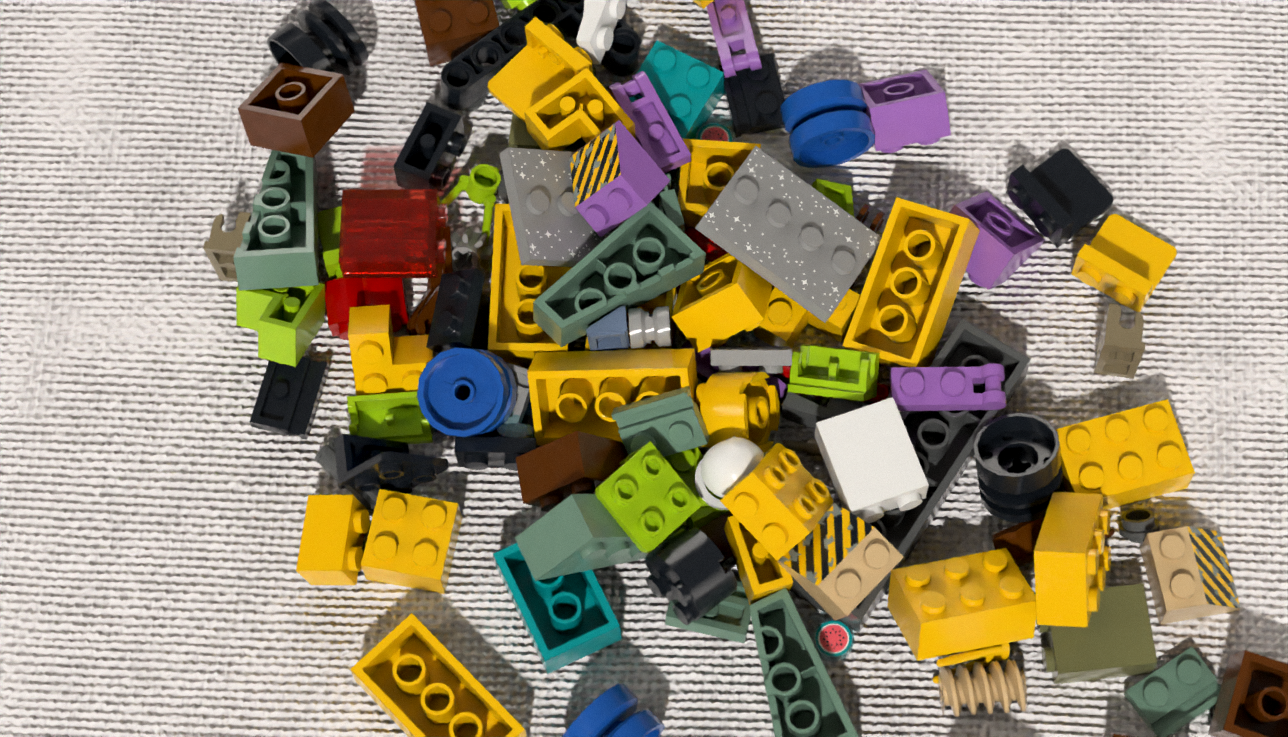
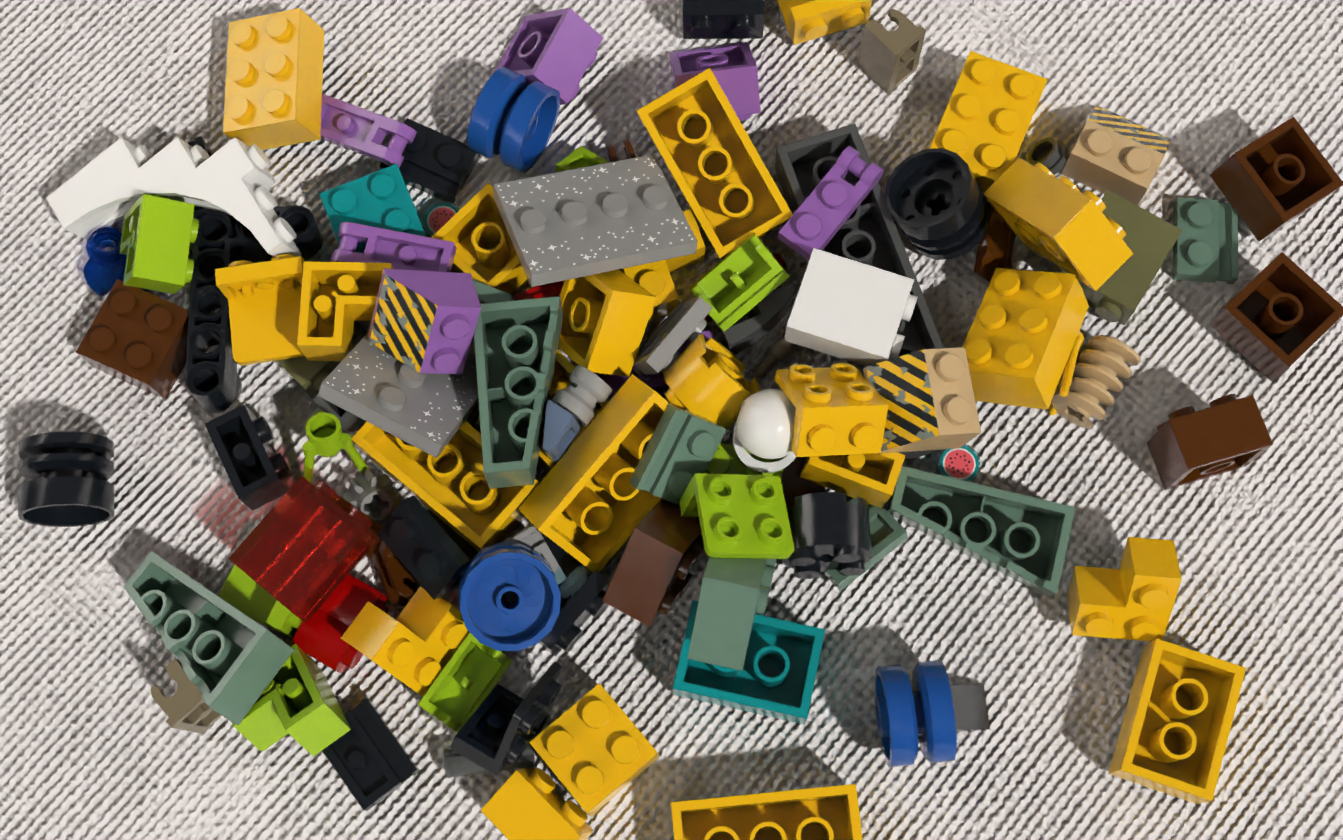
camera: 50 degrees left, 5 degrees up
(296, 109) = (111, 541): reddish brown brick -> none

